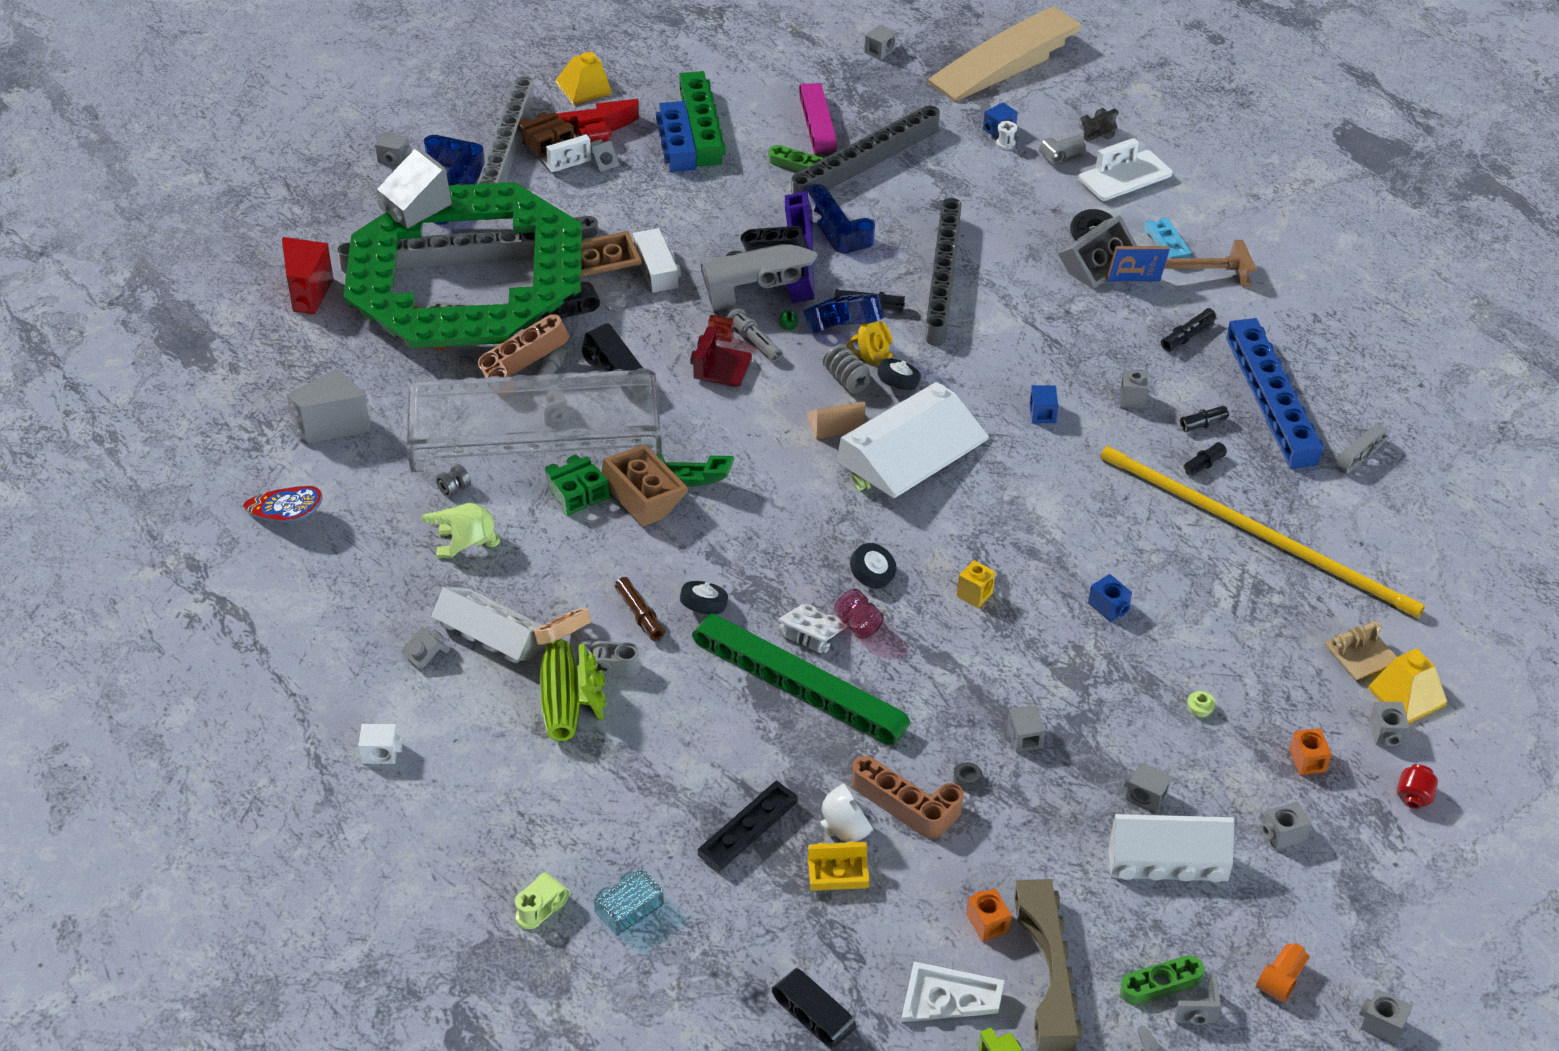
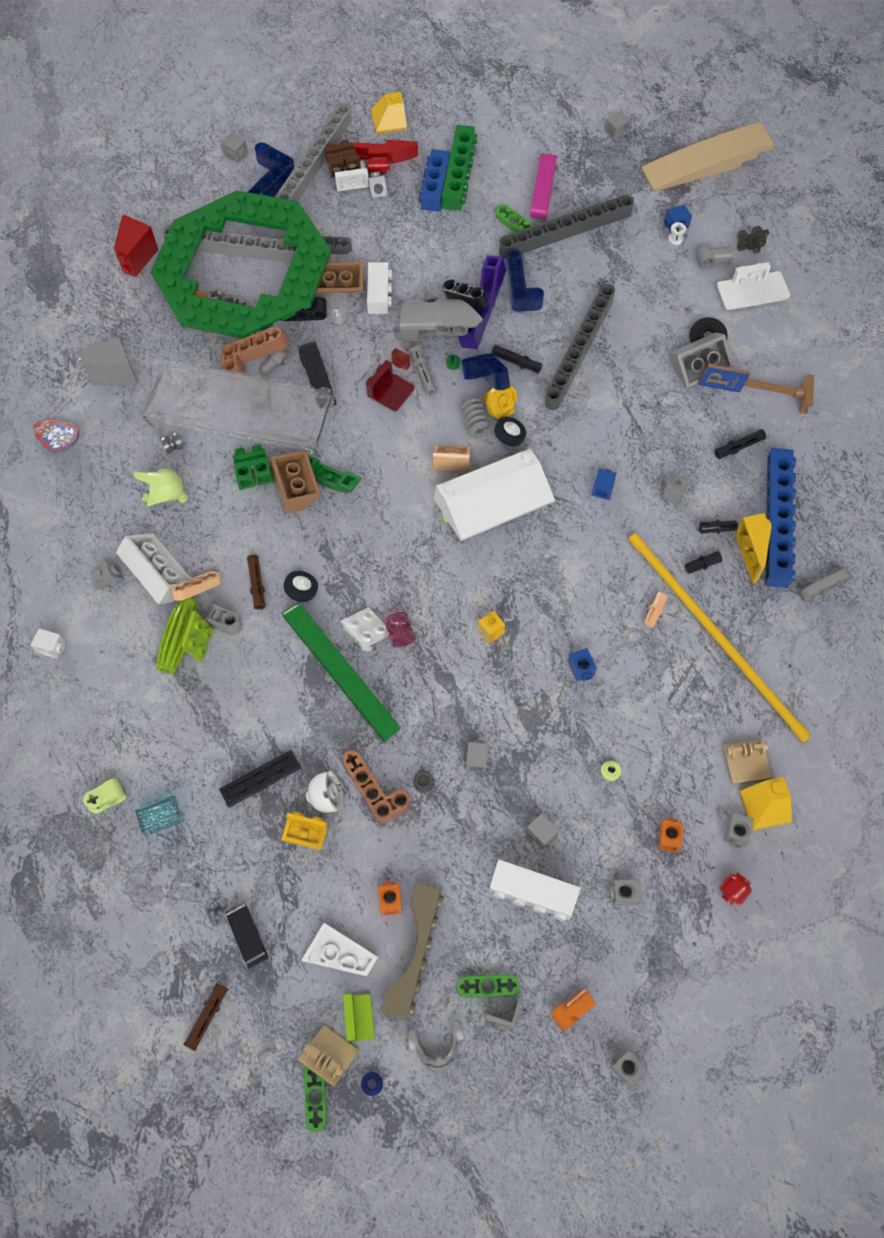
camera: 20 degrees right, 20 degrees up
(415, 189) = (220, 197): light grey slope -> none
(873, 565) = (426, 591): black wheel -> none
(1166, 235) = (759, 359): medium azure plate -> none
(1171, 520) = (655, 610): none -> light nougat axle
(1258, 421) = (753, 542): none -> yellow slope

